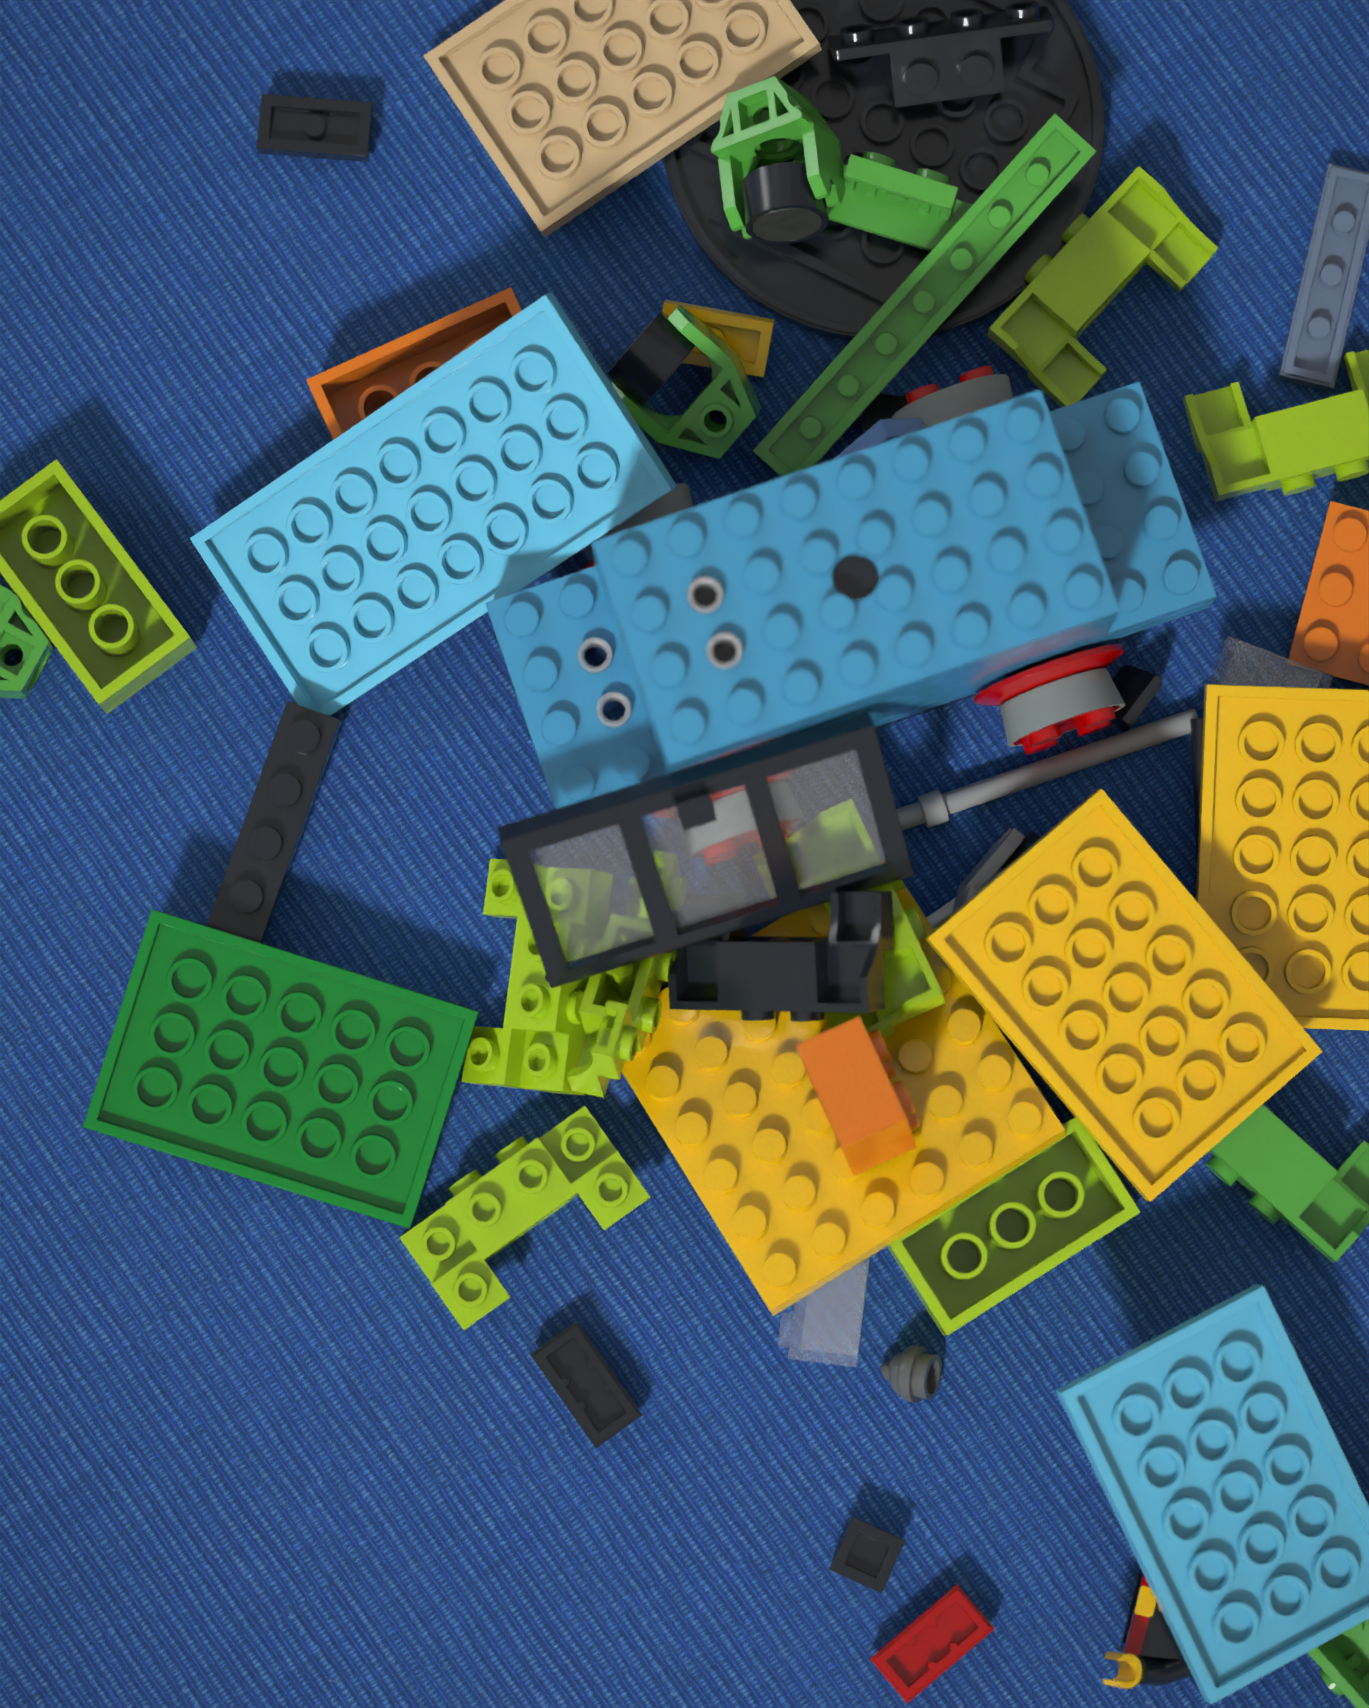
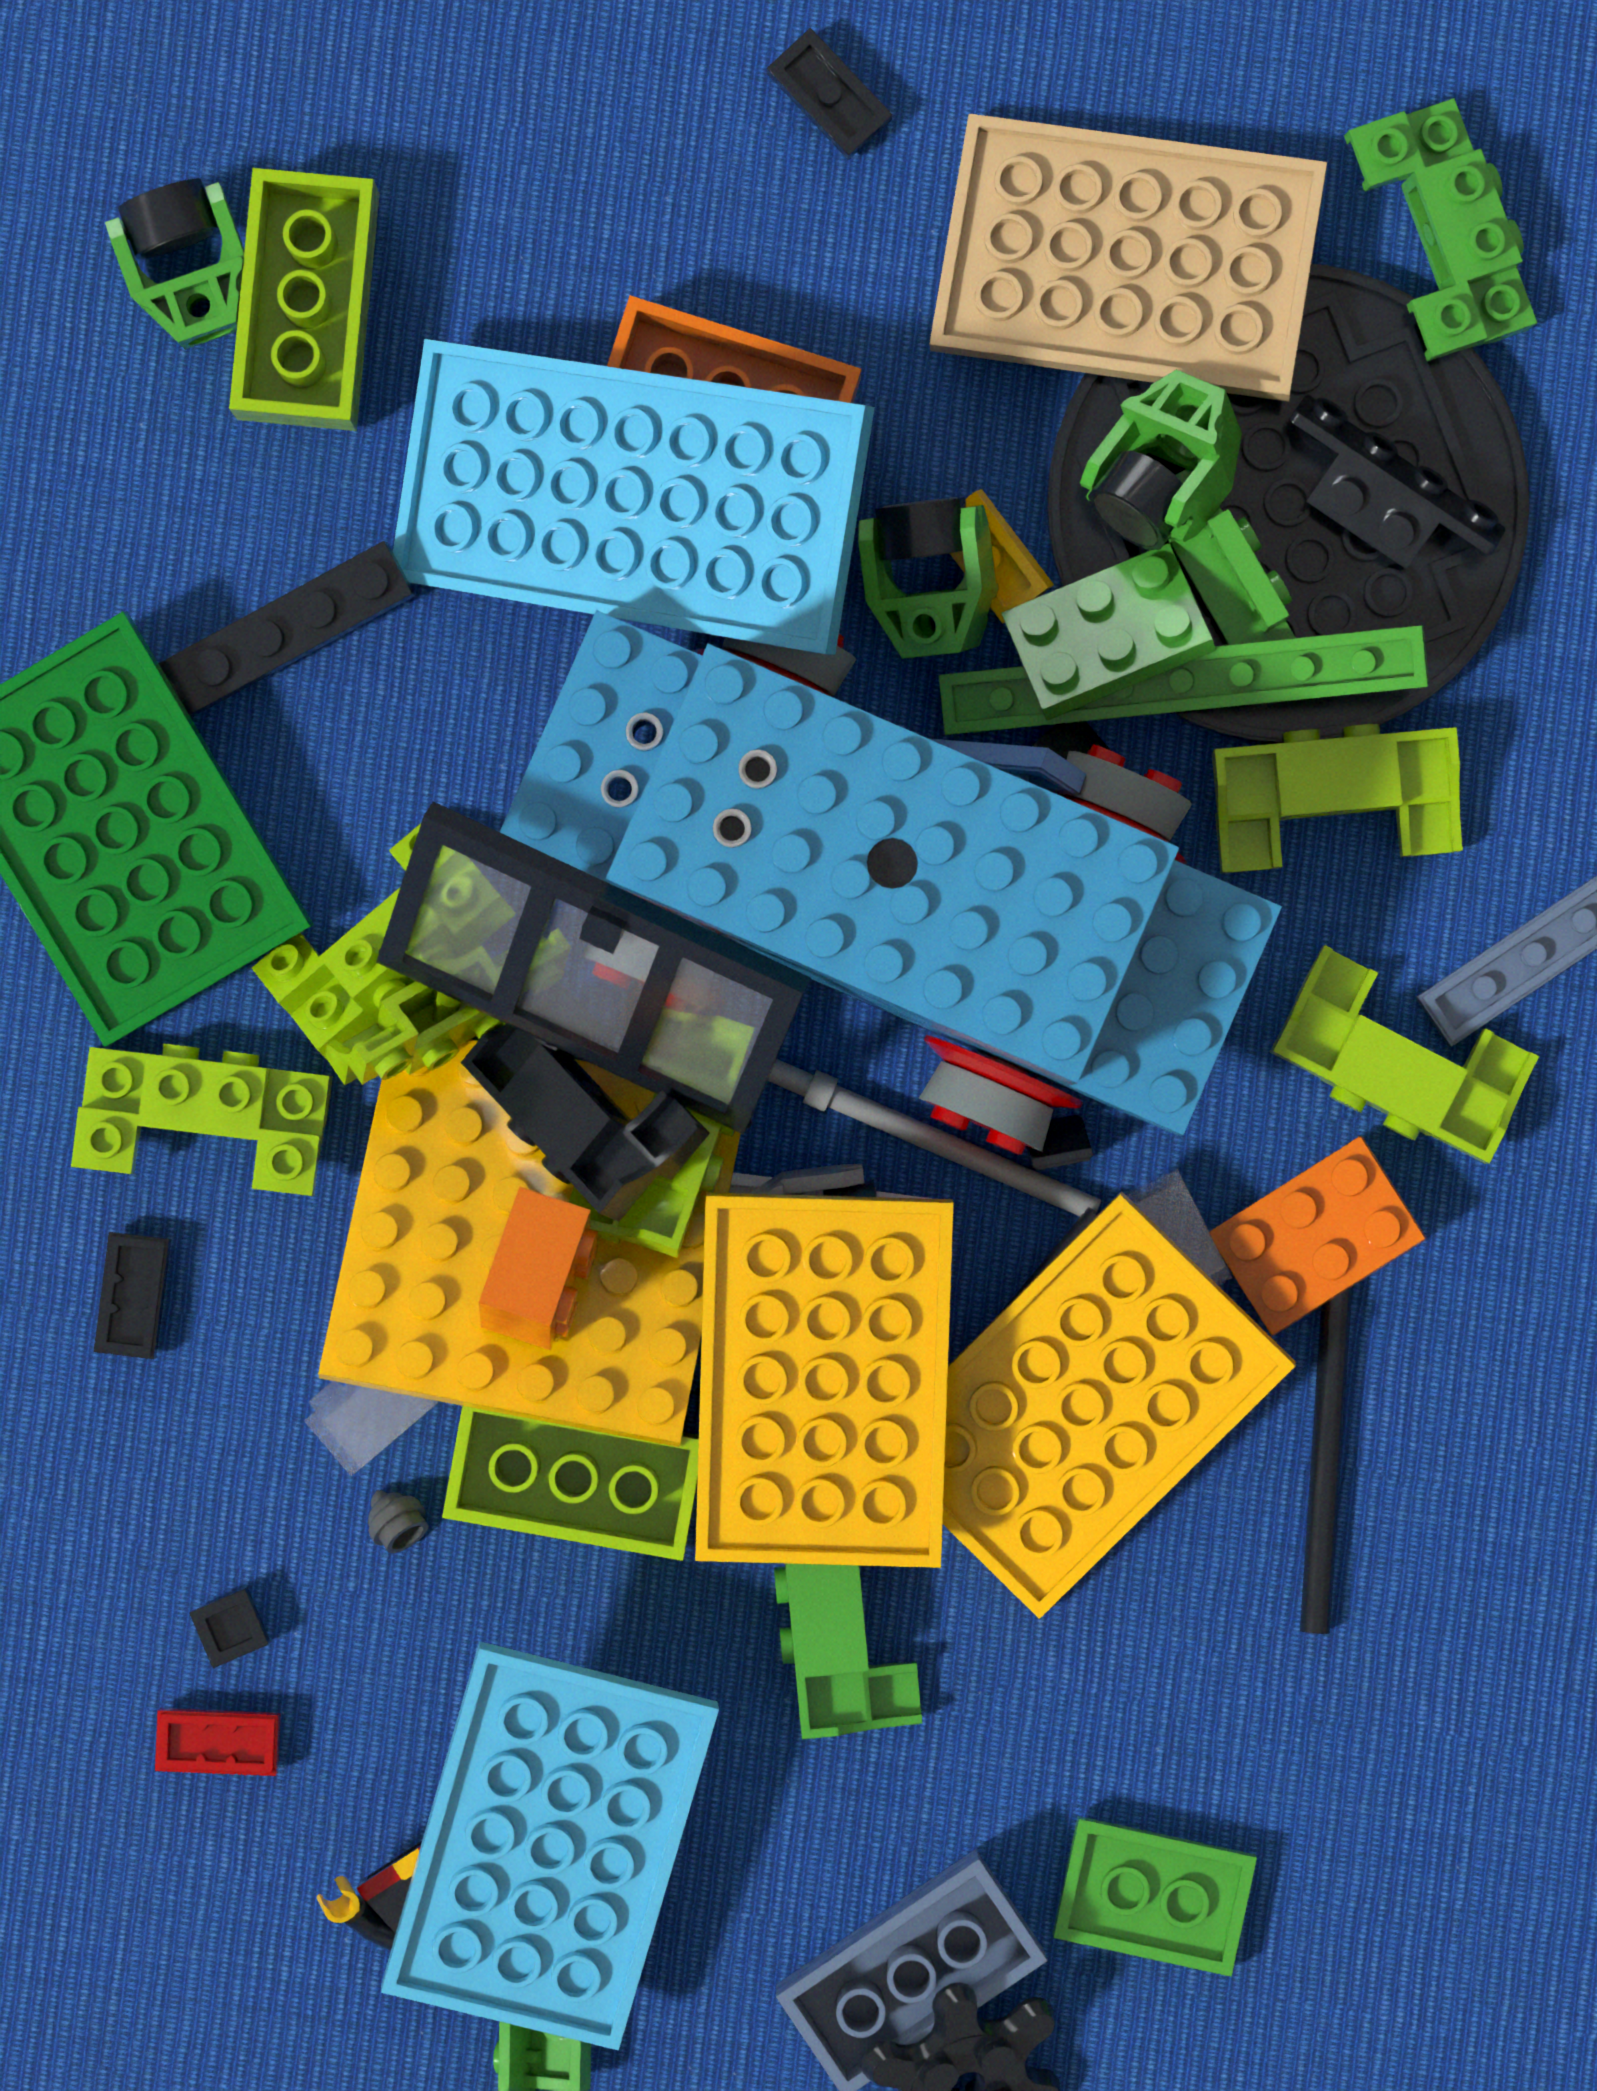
camera: 40 degrees right, 5 degrees up
(843, 313) = (1108, 631): none -> bright green plate

